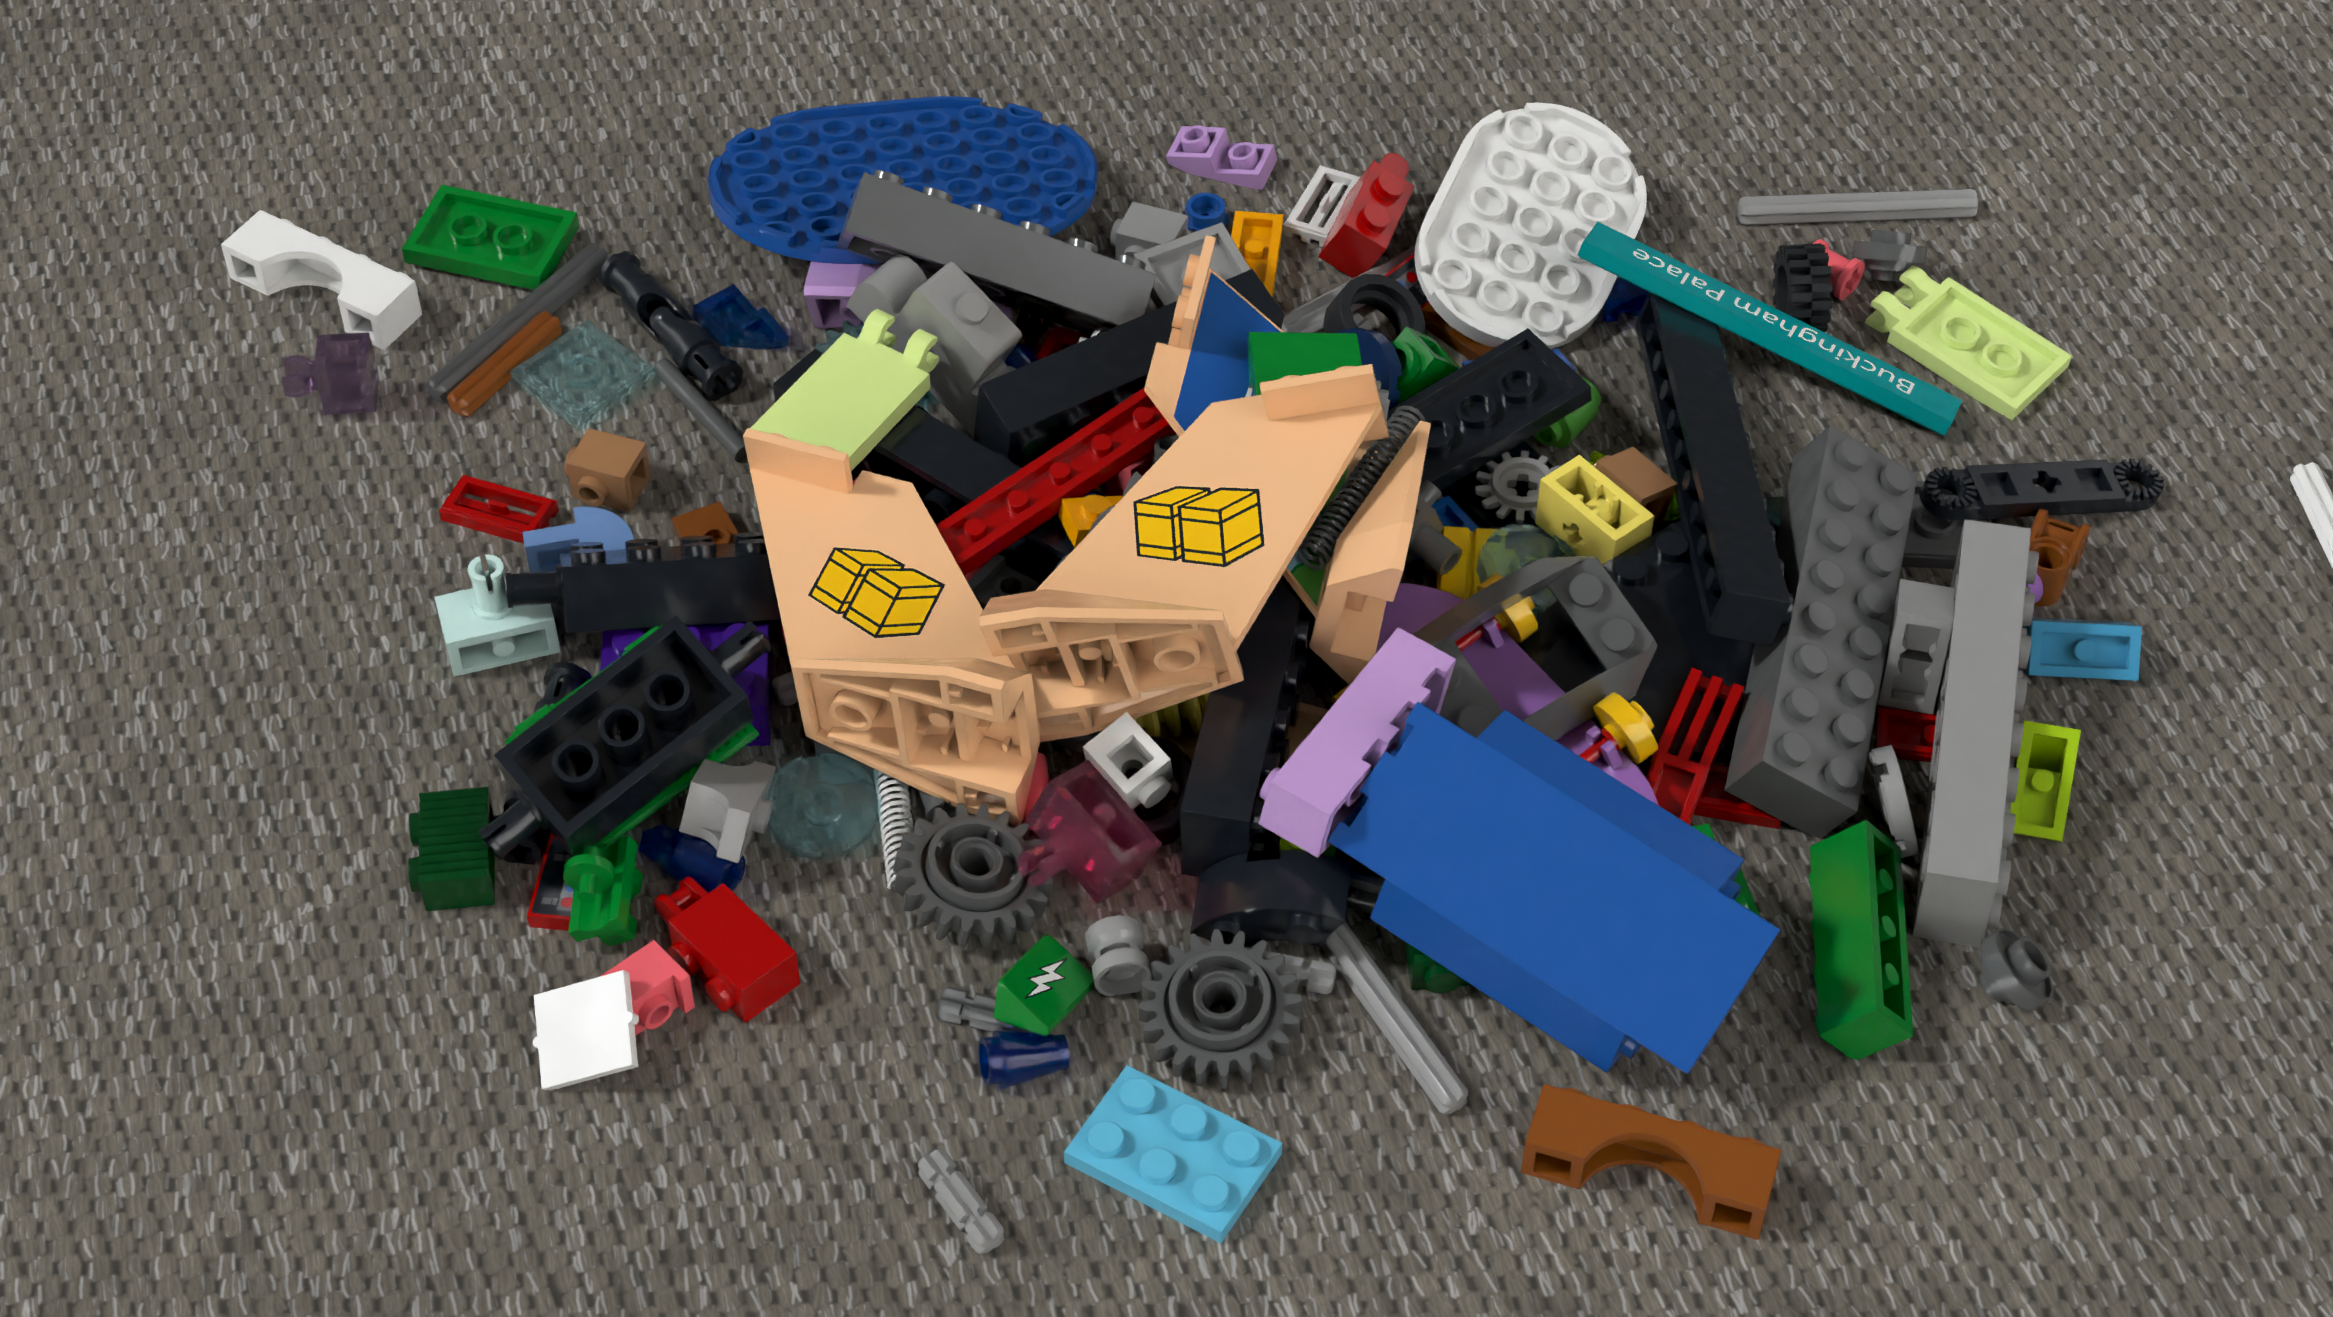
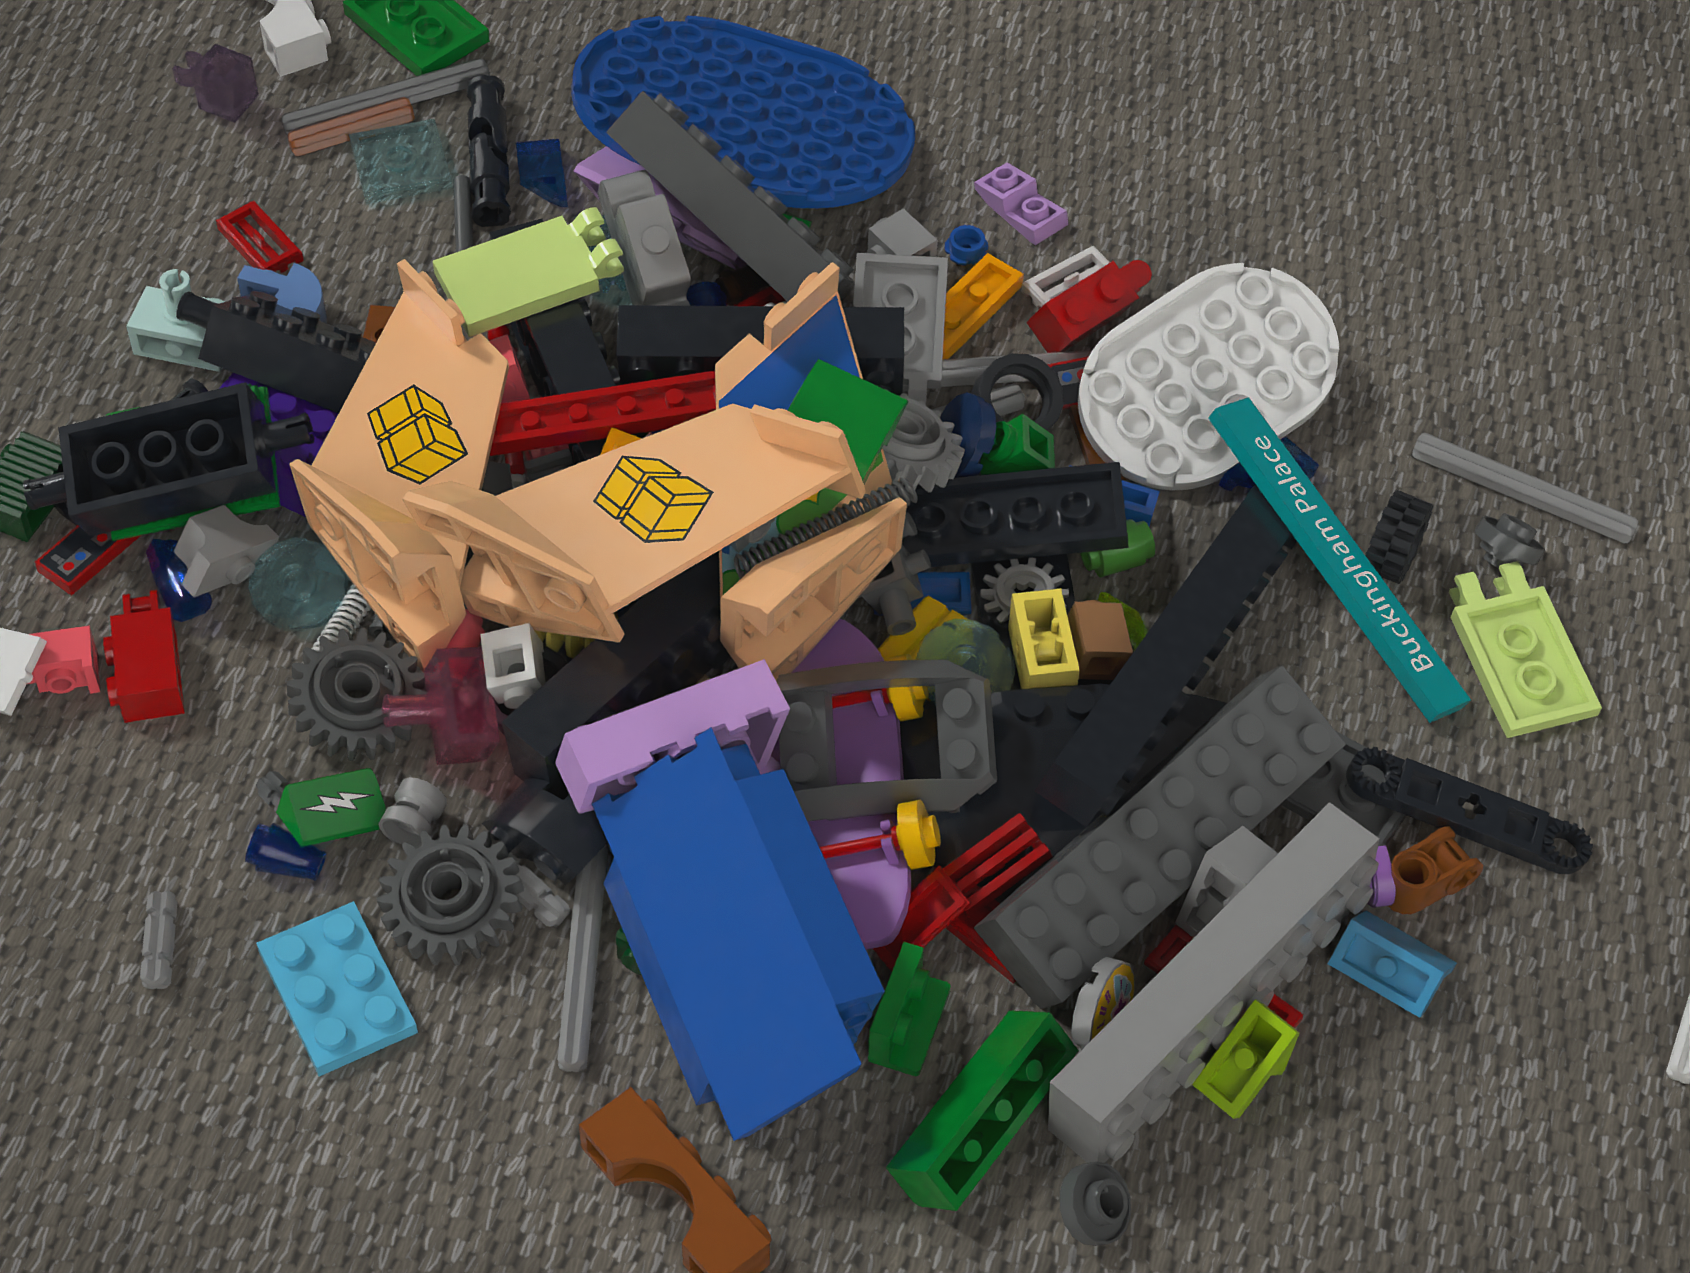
camera: 30 degrees right, 5 degrees up
(603, 888) = (89, 566): green hips -> none
(608, 470) = (352, 245): medium nougat brick -> none
(1845, 272) = (1451, 533): coral bush -> none

